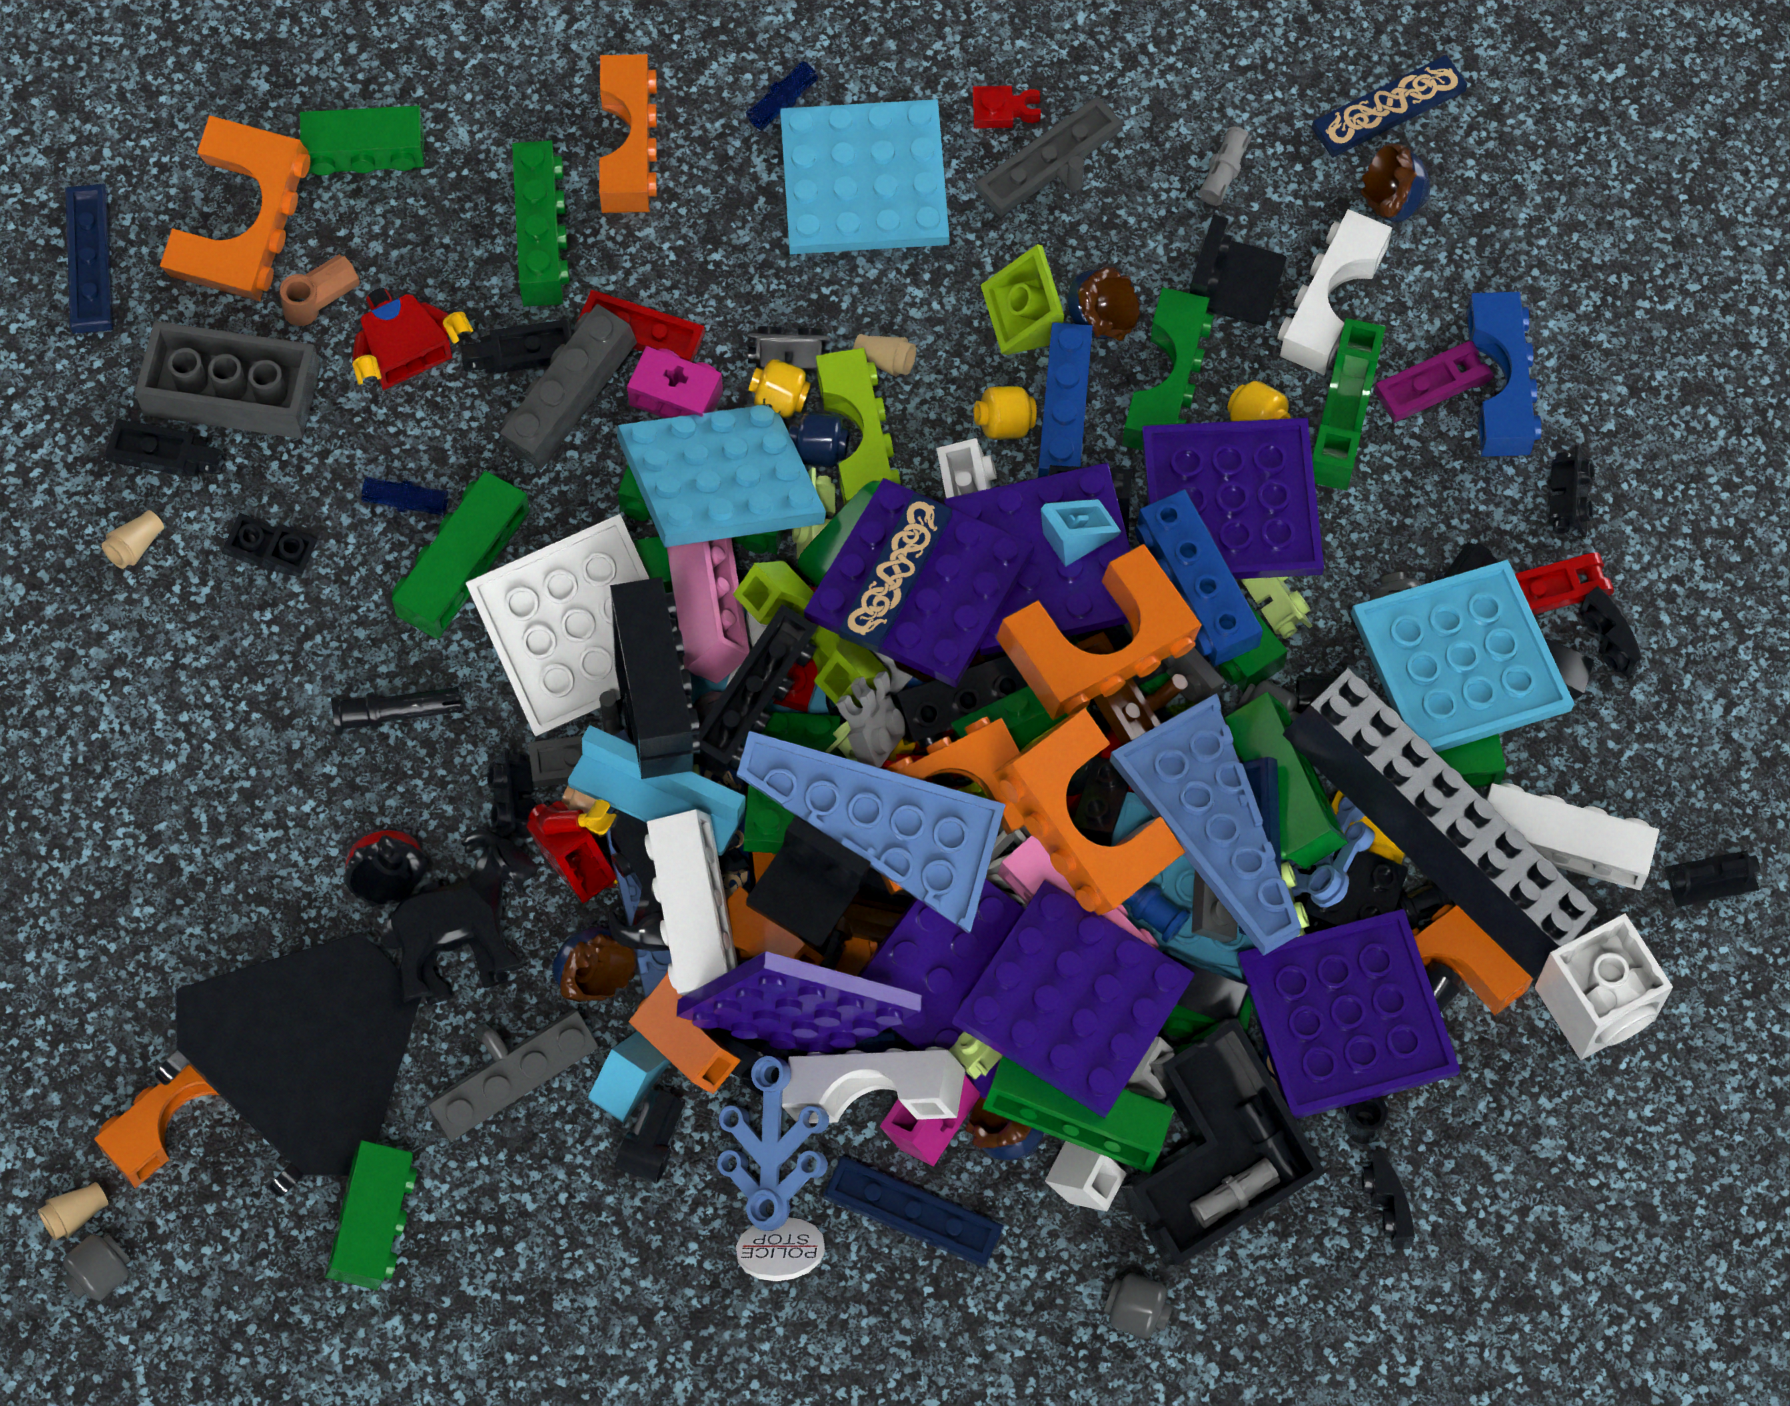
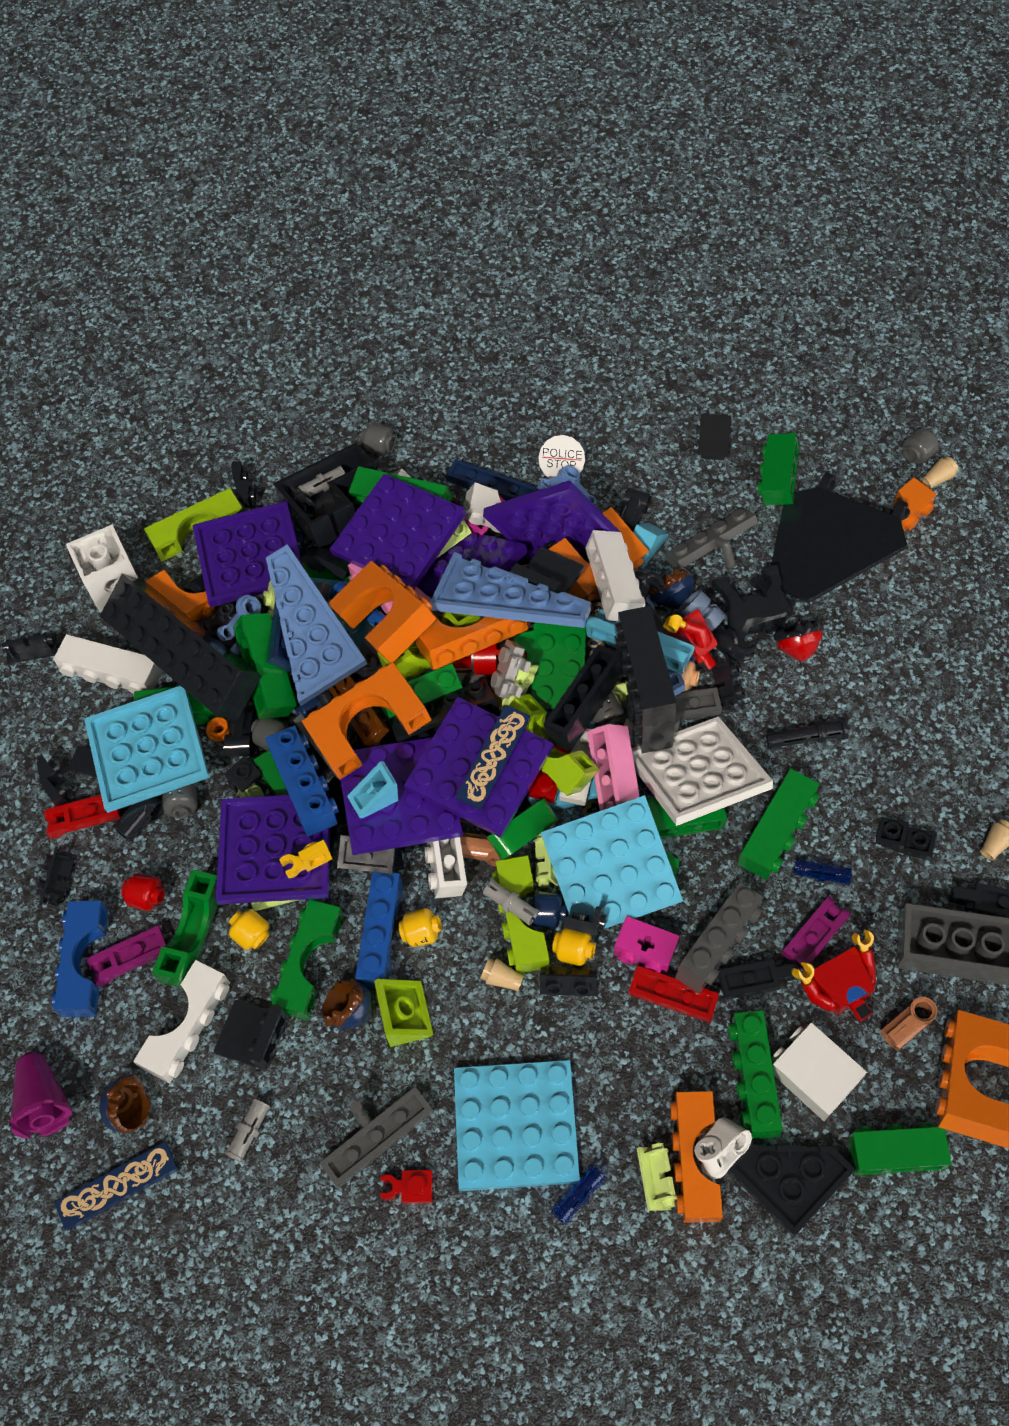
camera: 175 degrees left, 5 degrees down
(426, 408) = (816, 933): none -> magenta plate
(454, 230) = (816, 1070): none -> white brick
(483, 1305) = (714, 436): none -> black piece
(503, 107) = (791, 1180): none -> black plate
(546, 905) = (699, 600): none -> sand blue wheel
(588, 138) = (724, 1144): none -> white piece
(682, 109) = (657, 1188): none -> yellowish green hinge
(763, 393) = (580, 923): none -> black bracket
(871, 423) = (510, 902): none -> light grey pin
(1170, 460) = (309, 858): none -> yellow plate
(1303, 630) = (242, 775): none -> black bracket
(1420, 1145) = (169, 534): none -> lime arch
(1428, 462) = (142, 891): none -> red head
(1518, 193) = (37, 1099): none -> magenta cone

